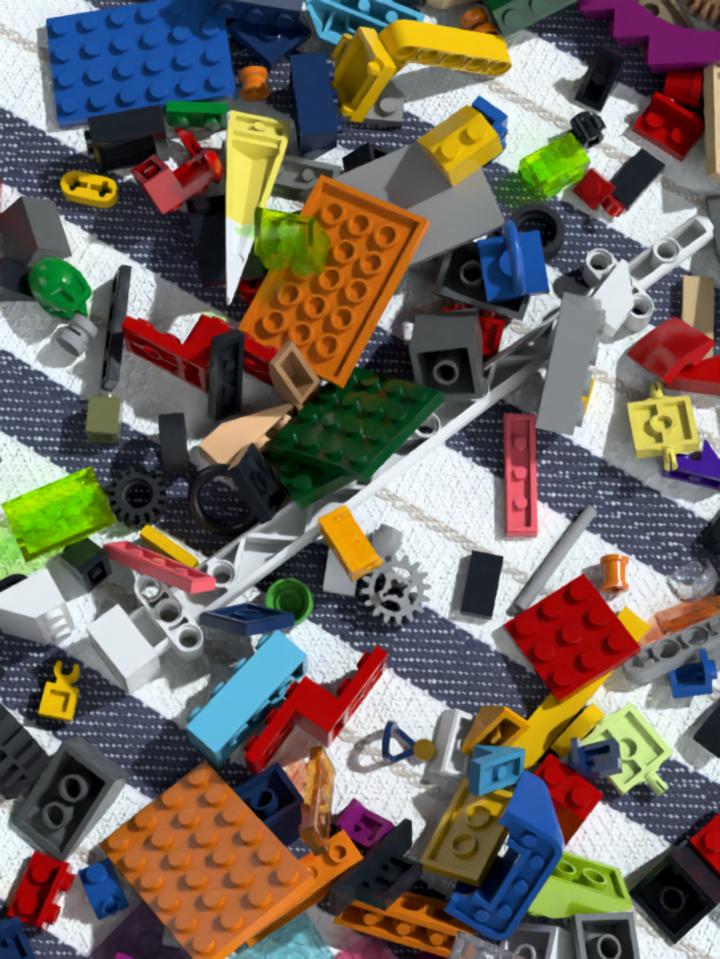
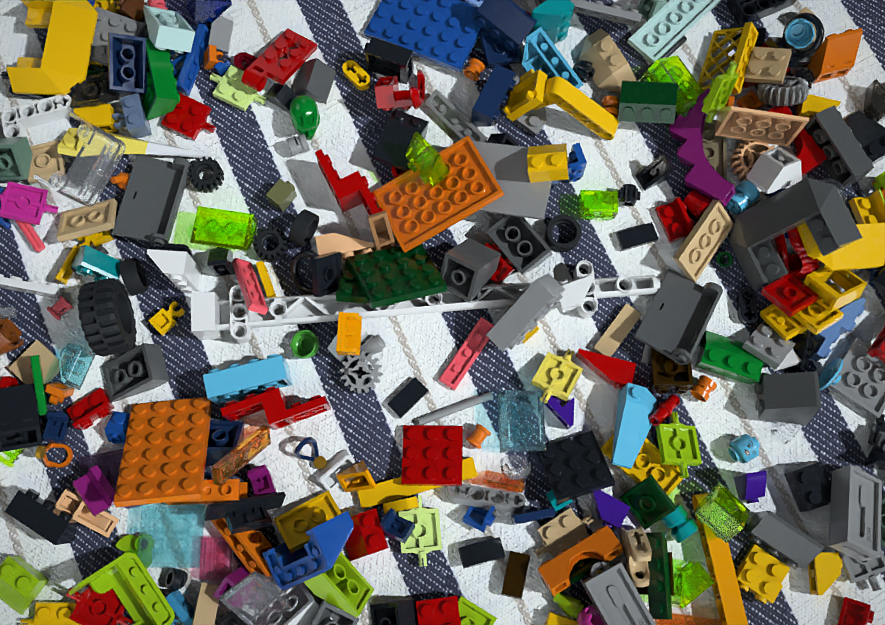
camera: 35 degrees right, 5 degrees up
(114, 333) = (324, 146): black tile -> none
(197, 114) = (434, 68): green plate -> none
(226, 374) = (350, 209): black plate -> none
(247, 619) = (273, 340): dark blue plate -> none
(252, 162) = (440, 108): light yellow plate -> none
(494, 768) = (343, 497): dark azure slope -> none
(513, 265) = (534, 242): blue tile -> none
(597, 191) = (611, 231): red plate -> none
(657, 516) = (521, 421): none -> clear light blue slope
(670, 348) = (590, 337): red slope -> none

